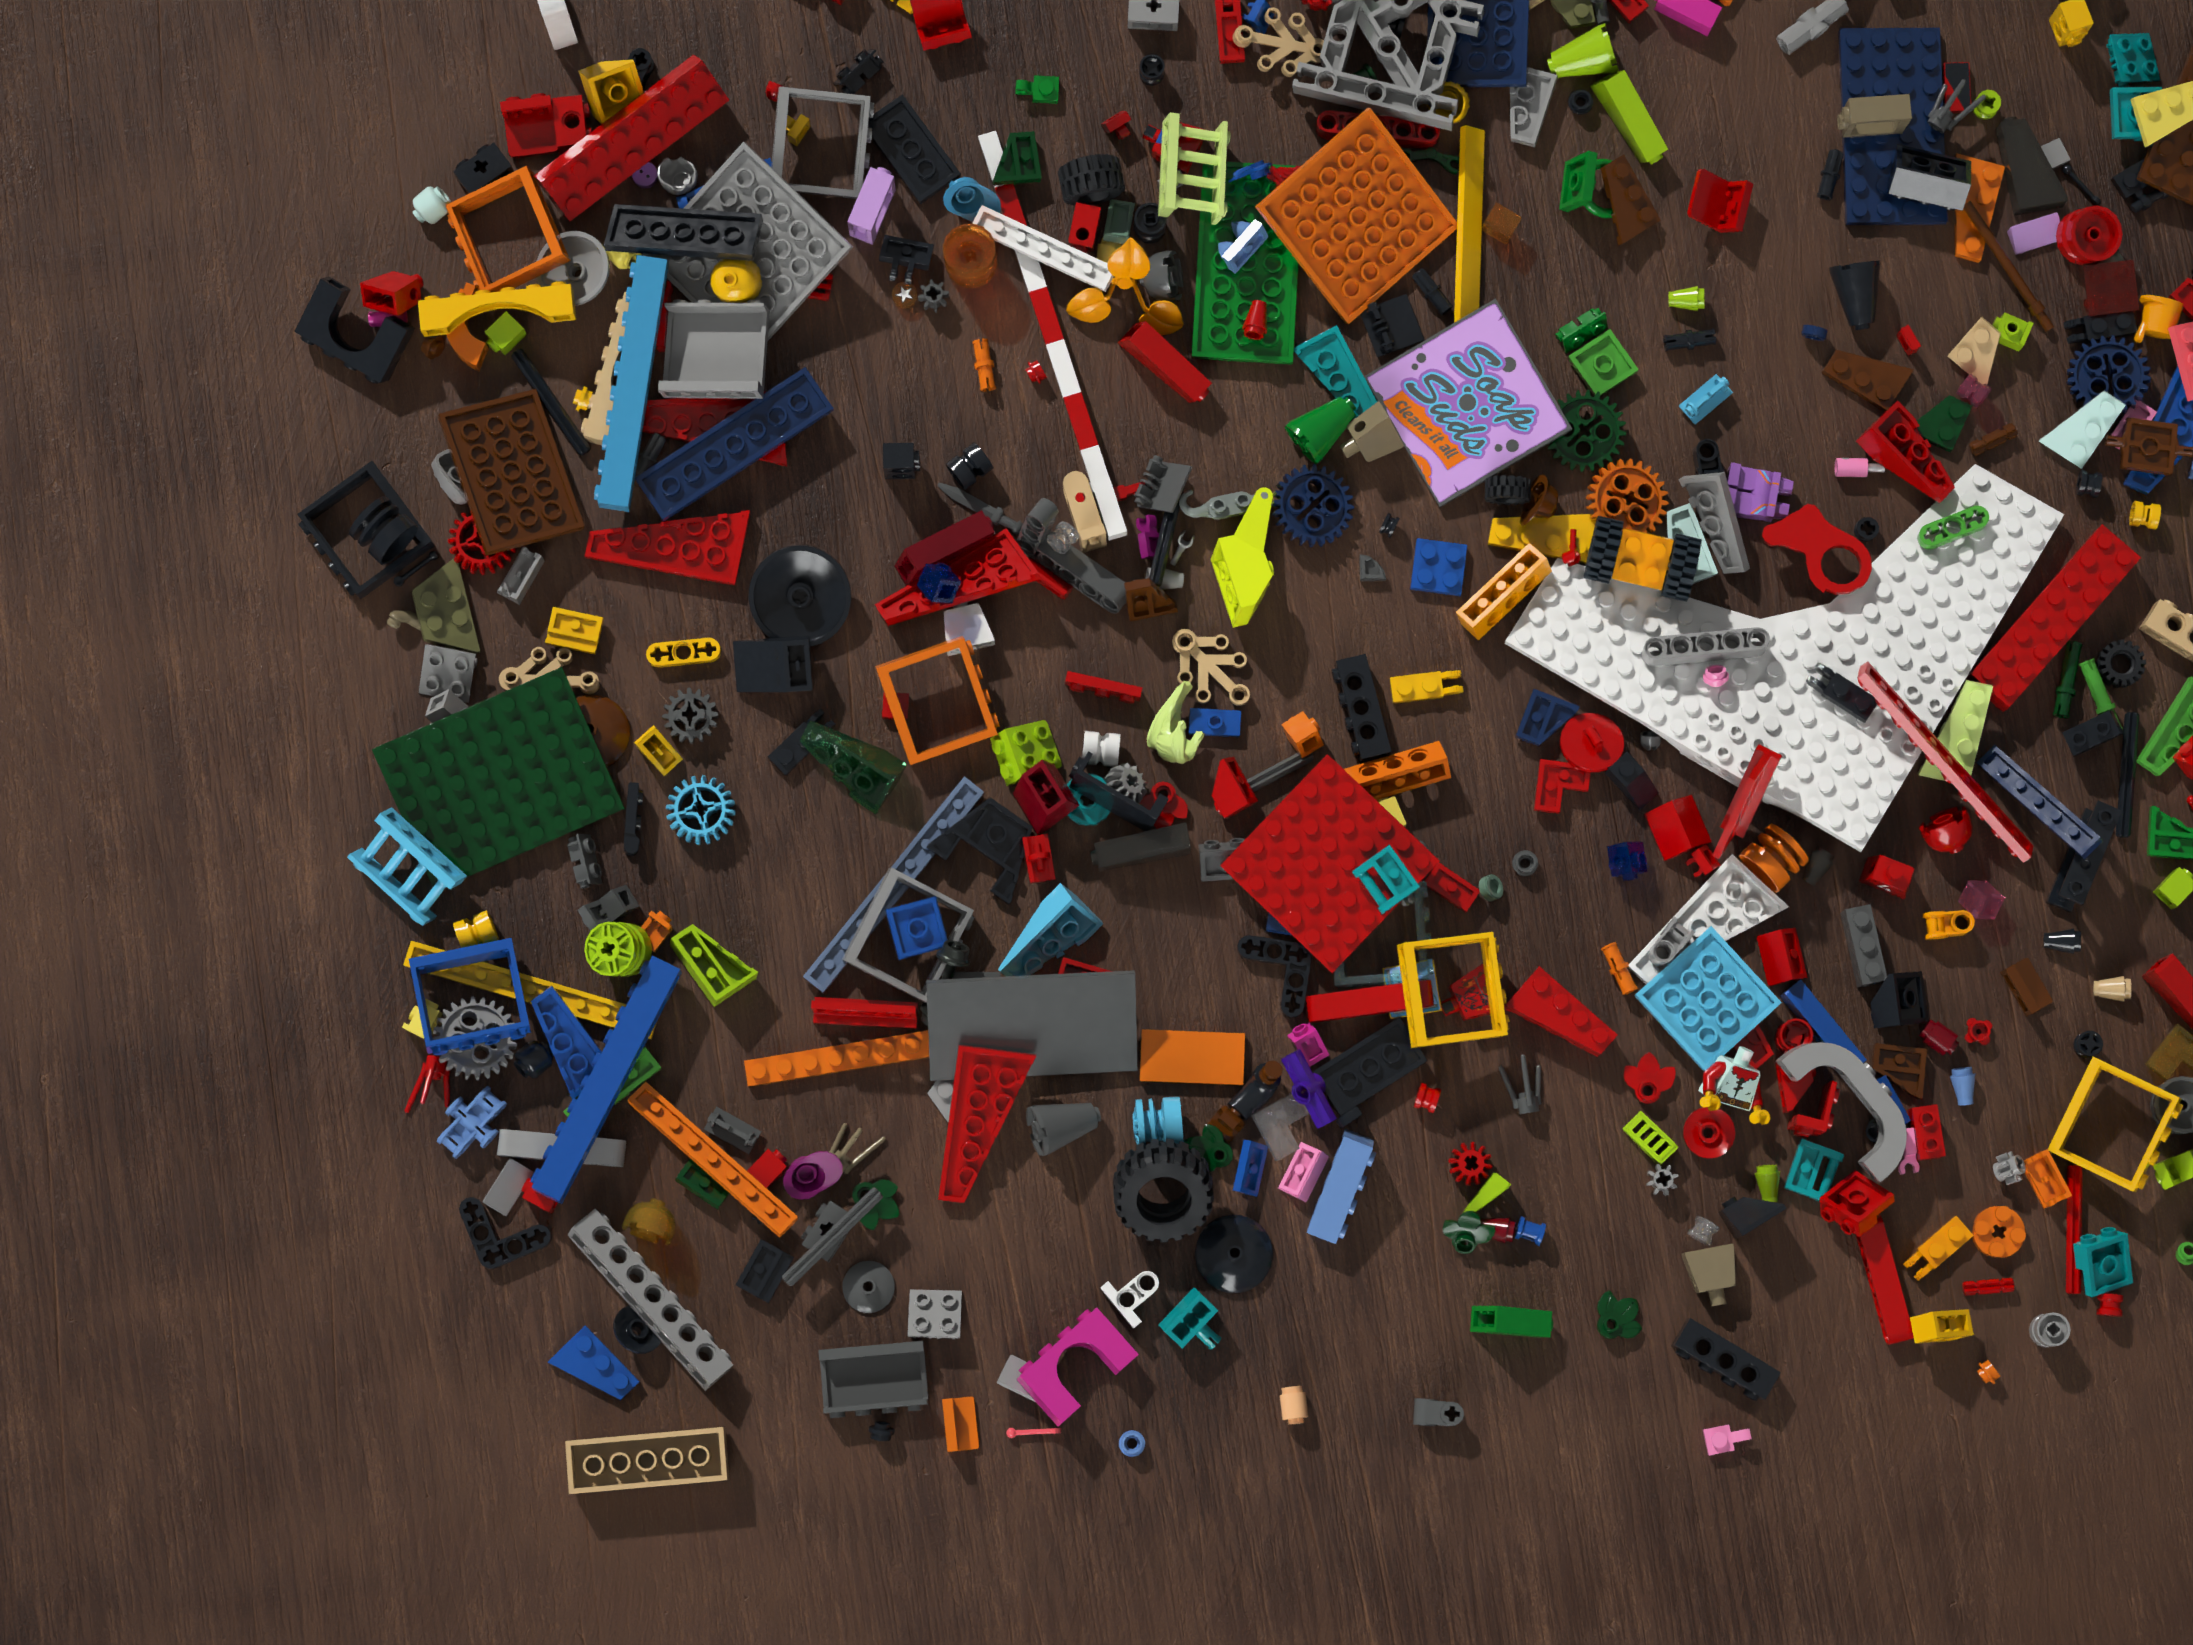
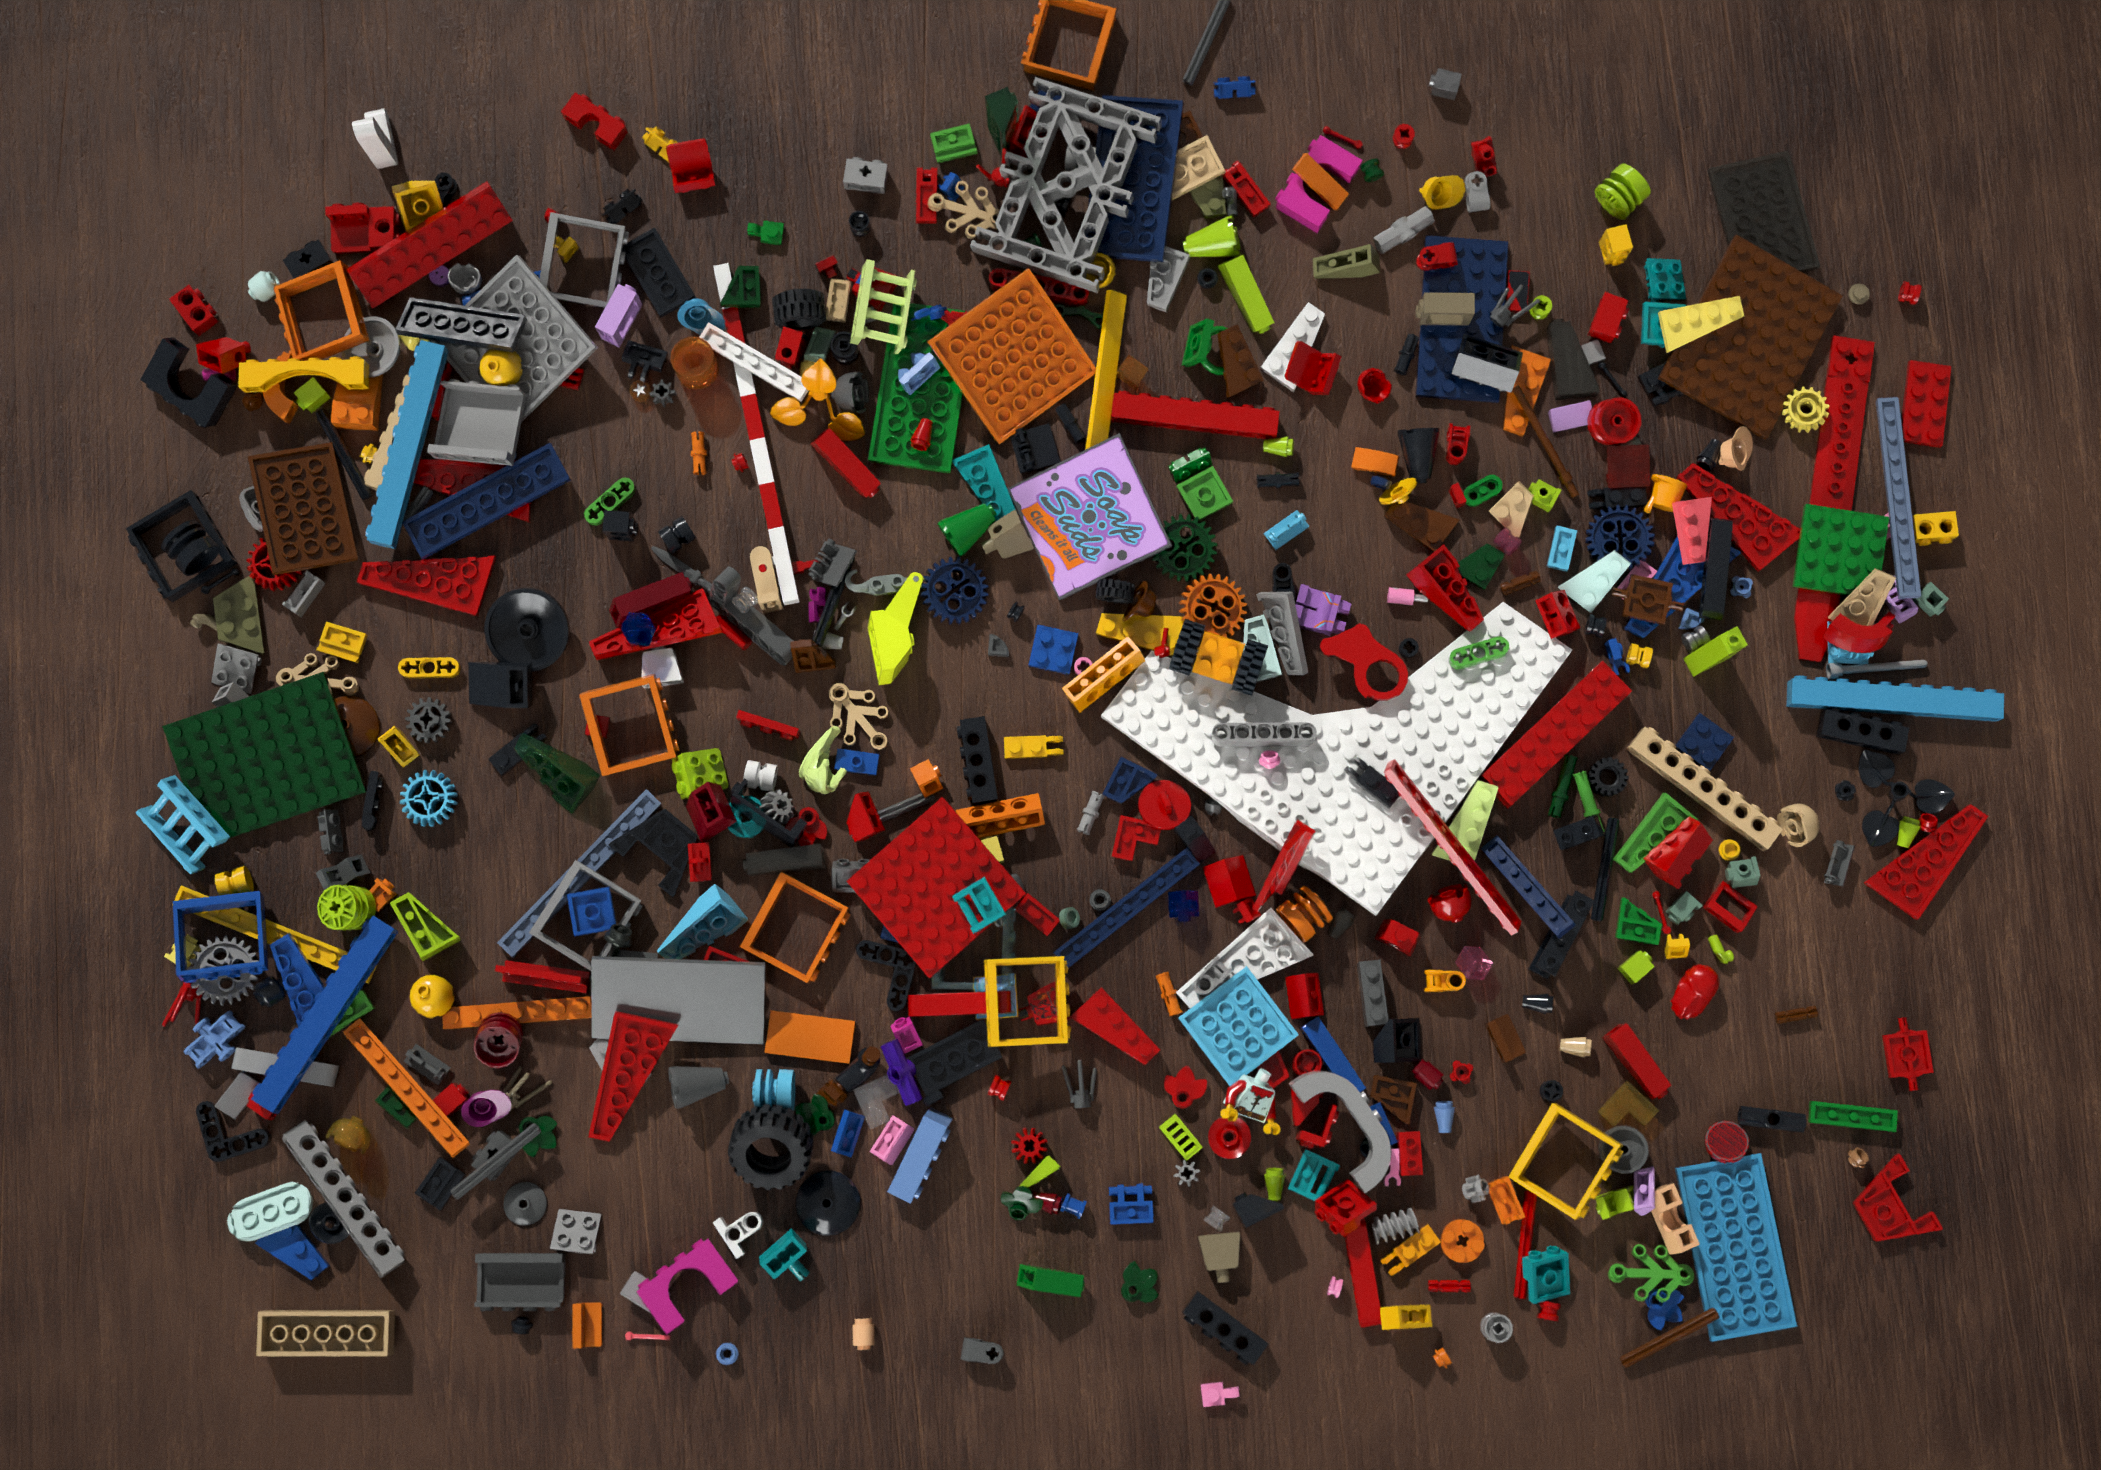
camera: 10 degrees right, 0 degrees up
(346, 243) = (194, 310): none -> red brick
(562, 344) = (357, 407): none -> orange slope
(562, 1322) = (270, 1211): none -> light aqua tile
(731, 1047) = (431, 996): none -> yellow cylinder
(824, 1104) = (494, 1049): none -> dark red wheel
(899, 423) = (610, 492): none -> bright green beam
(1135, 164) = (838, 300): none -> tan plate
(1206, 936) = (765, 912): none -> orange window
(1470, 580) = (1078, 663): none -> bright pink bush
(1503, 759) = (1090, 813): none -> light grey pin
(1561, 868) = (1127, 907): none -> dark blue plate
(1582, 270) = (1194, 416): none -> red brick
(1601, 1231) = (1134, 1211): none -> blue plate
(1702, 154) = (1303, 329): none -> white wing
(1749, 70) = (1348, 263): none -> olive slope
(1795, 215) = (1373, 385): none -> red hair
(1805, 307) = (1375, 461): none -> orange slope
(1837, 341) = (1398, 492): none -> yellow dish
(1852, 1299) = (1334, 1287): none -> bright pink bush
(1861, 53) = (1441, 257): none -> red piece
(1901, 273) = (1457, 440): none -> red piece
(1916, 1219) = (1394, 1225): none -> light grey piece
(1936, 333) = (1481, 490): none -> green plate
(2039, 394) = (1561, 548): none -> medium azure plate
(2042, 473) = (1557, 614): none -> red brick
(2069, 110) = (1608, 317): none -> red brick
(2114, 513) = (1614, 652): none -> blue plate

